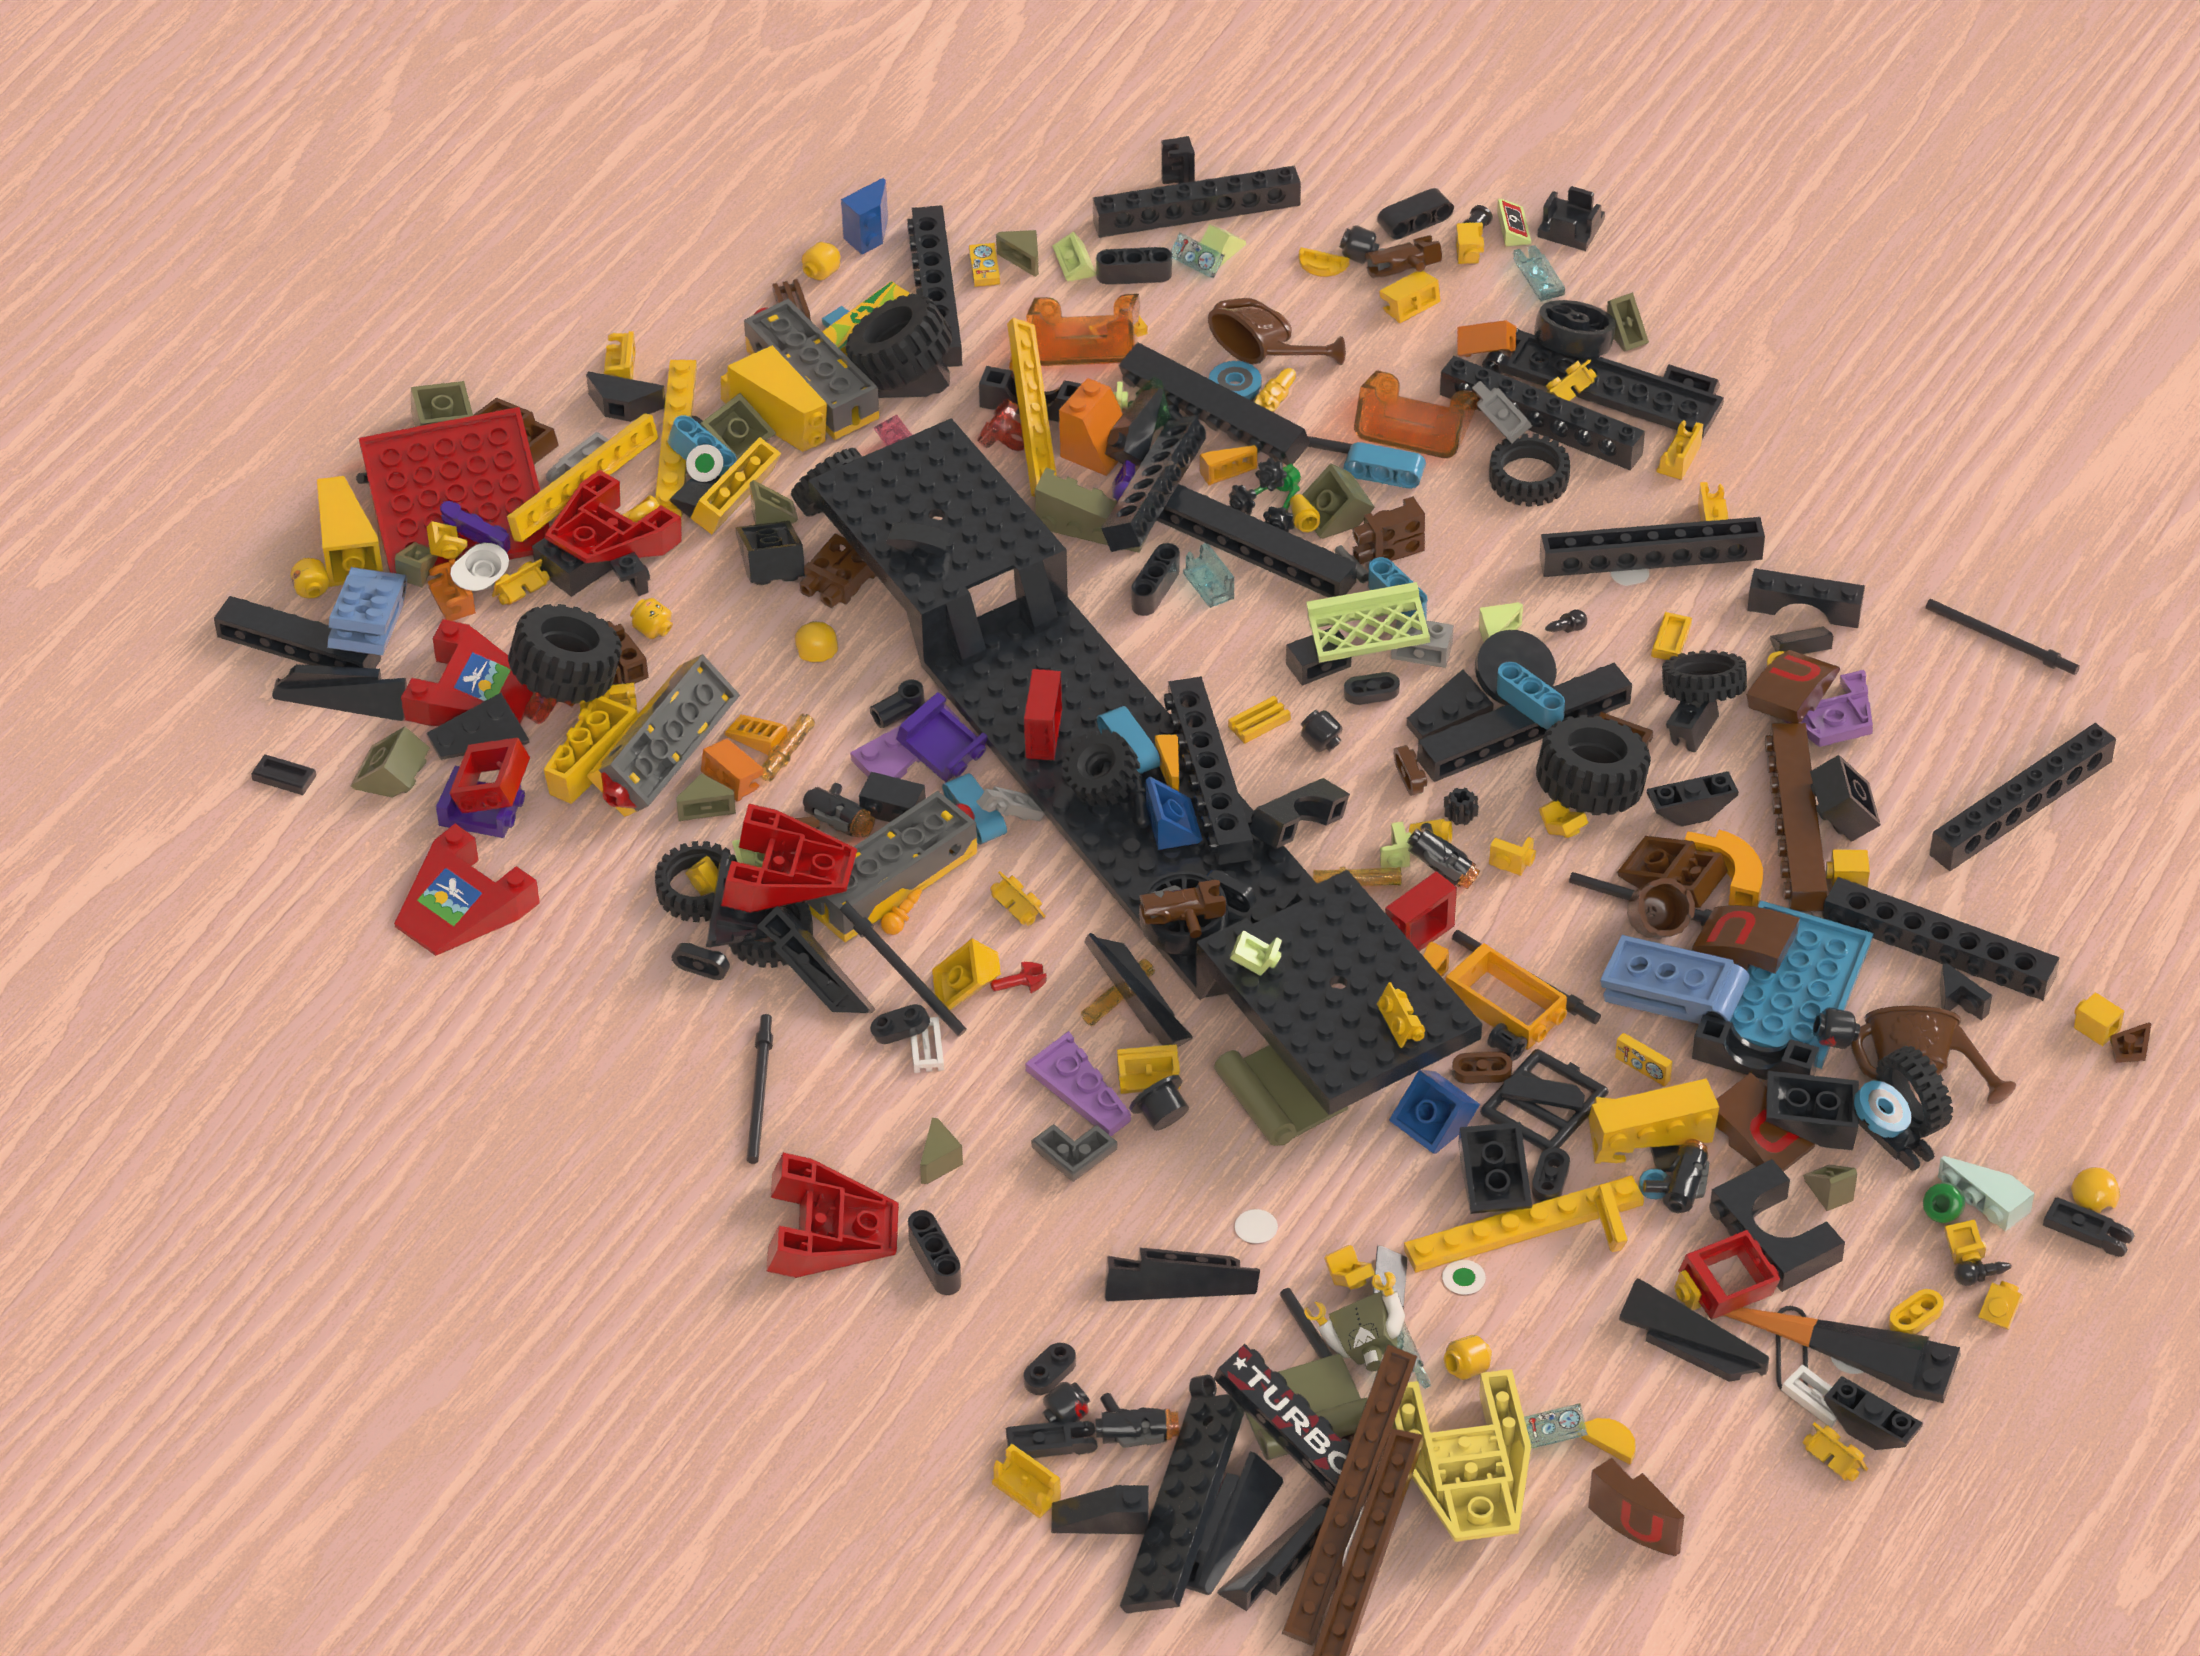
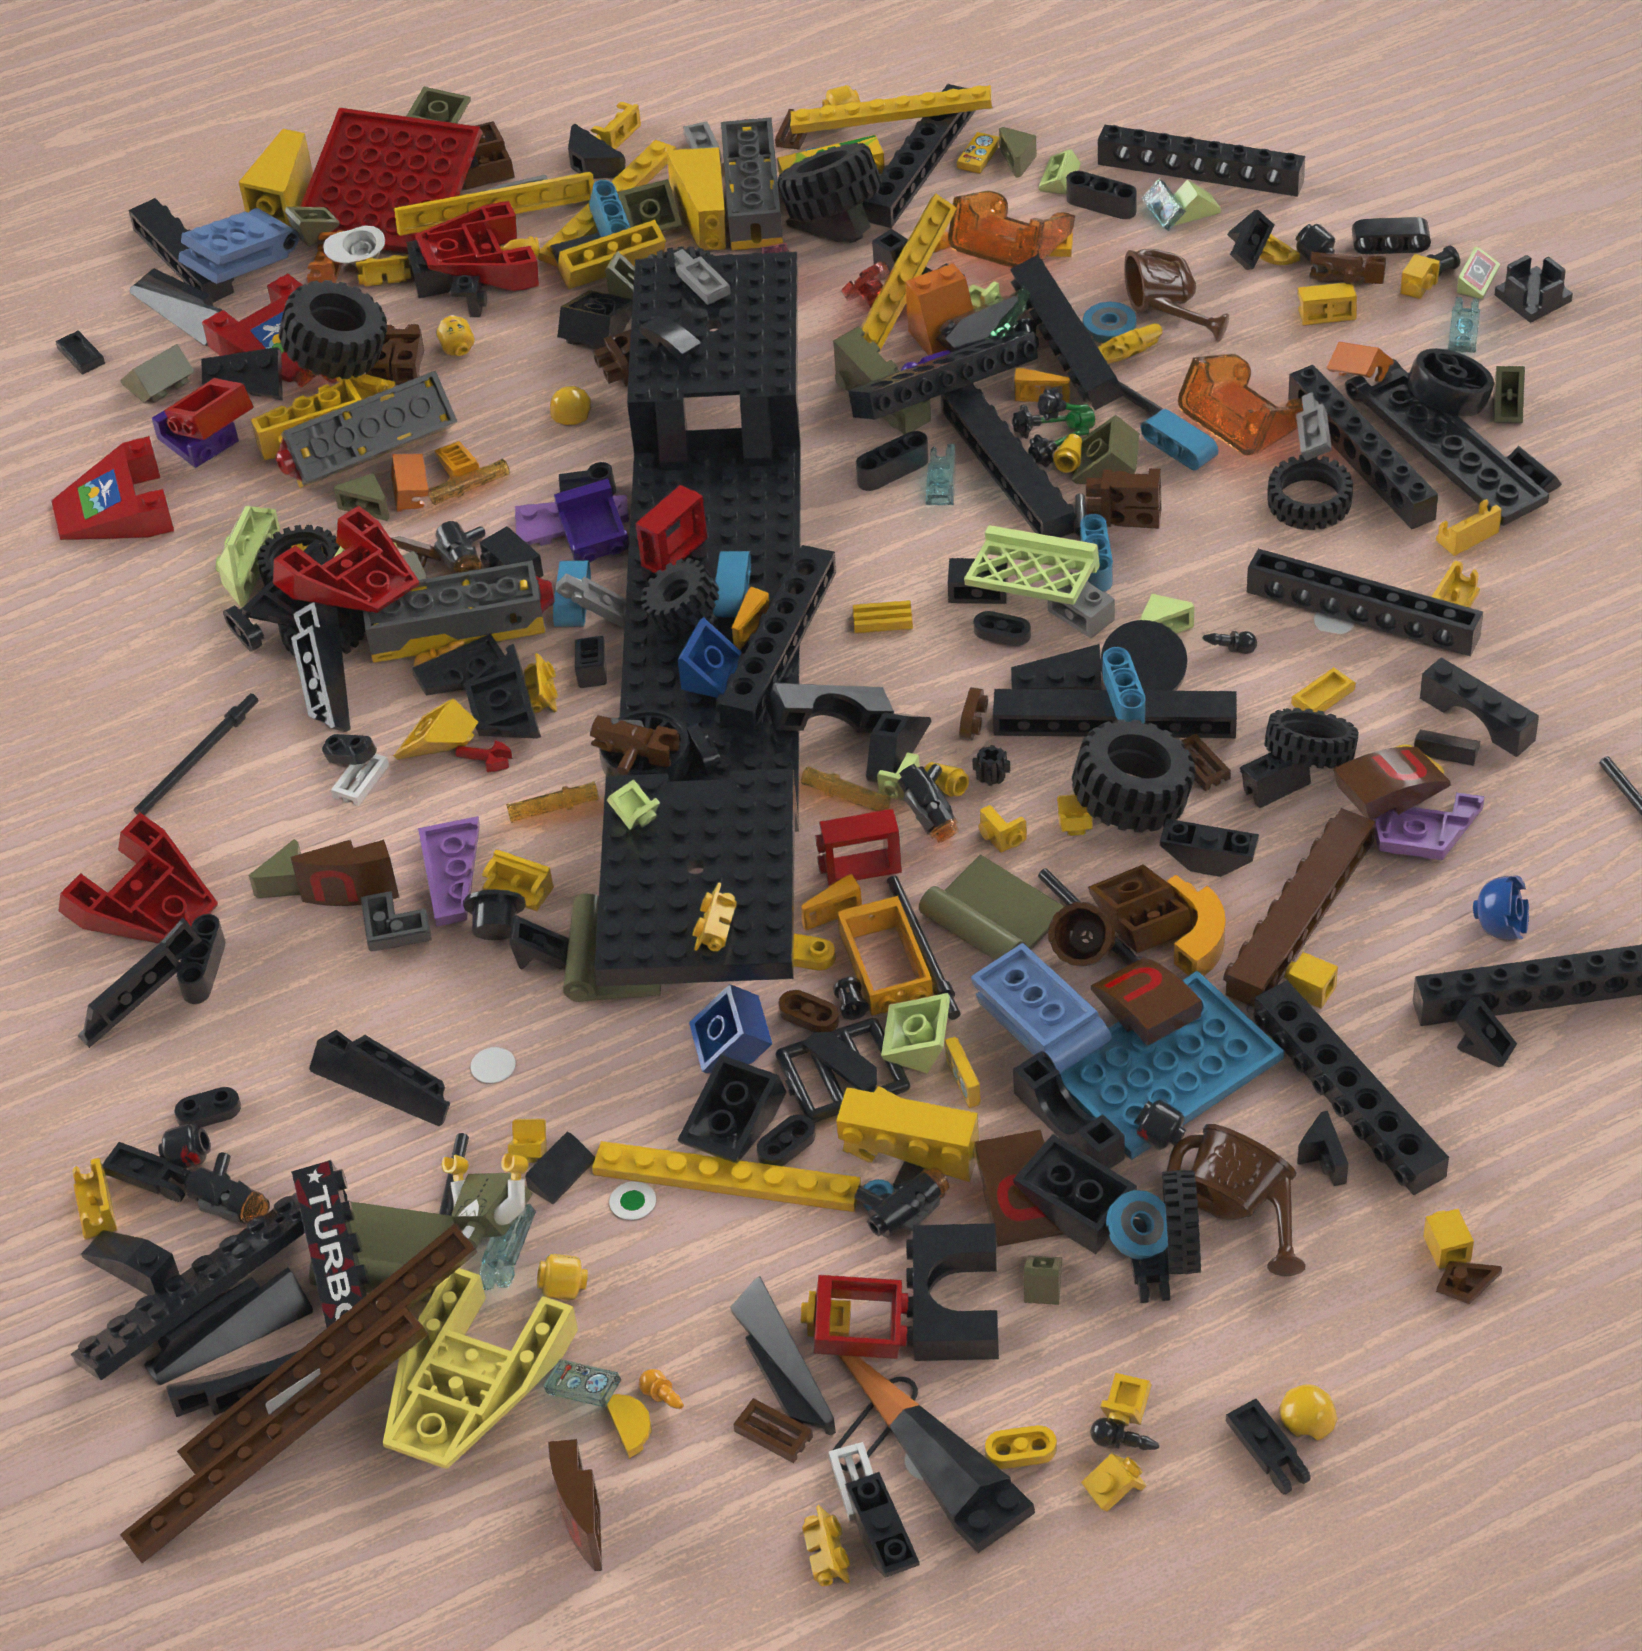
camera: 35 degrees right, 0 degrees up
(309, 578) = (227, 203): yellow head -> none
(444, 540) = (343, 212): yellow bracket -> none
(473, 526) = (375, 211): dark purple hinge -> none
(641, 898) = (239, 558): none -> yellowish green wedge
(704, 463) = (598, 225): white sticker -> none
(717, 345) = (700, 136): none -> light grey hinge
(864, 928) = (372, 652): black bar -> none
(865, 216) = (907, 72): blue slope -> none
(881, 251) = (891, 109): none -> yellow plate
(895, 473) = (701, 277): none -> light grey hinge
(908, 1289) = (138, 983): none -> black wedge
(938, 911) = (457, 666): none -> black wing
(1001, 923) = (502, 699): none -> black wing
(1007, 1126) = (344, 873): none -> reddish brown slope
(1043, 862) = (590, 665): none -> black slope
(1138, 990) = (561, 809): black wedge -> none
(1177, 160) = (1206, 117): black hinge -> none
(1214, 1111) = (537, 942): none -> black slope
(1302, 259) = (1250, 238): none -> black slope
(1321, 730) = (922, 646): black head -> none
(1369, 823) = (892, 739): none -> black slope
(1559, 923) = (990, 909): none -> olive door
(1577, 376) = (1414, 423): yellow hinge -> none
(1588, 1042) = (916, 1032): none -> yellowish green slope
(1604, 1402) = (659, 1388): none -> light orange bar
(1610, 1218) = (797, 1207): yellow tile -> none
(1723, 1396) = (763, 1439): none -> reddish brown tile
(1844, 798) = (1353, 907): black brick -> none
(1944, 1202) = (1134, 1348): green head -> none
(1948, 752) = (1502, 908): none -> blue cylinder
(1990, 1191) = (1197, 1362): light aqua slope -> none
(2007, 856) = (1484, 1034): none -> black slope

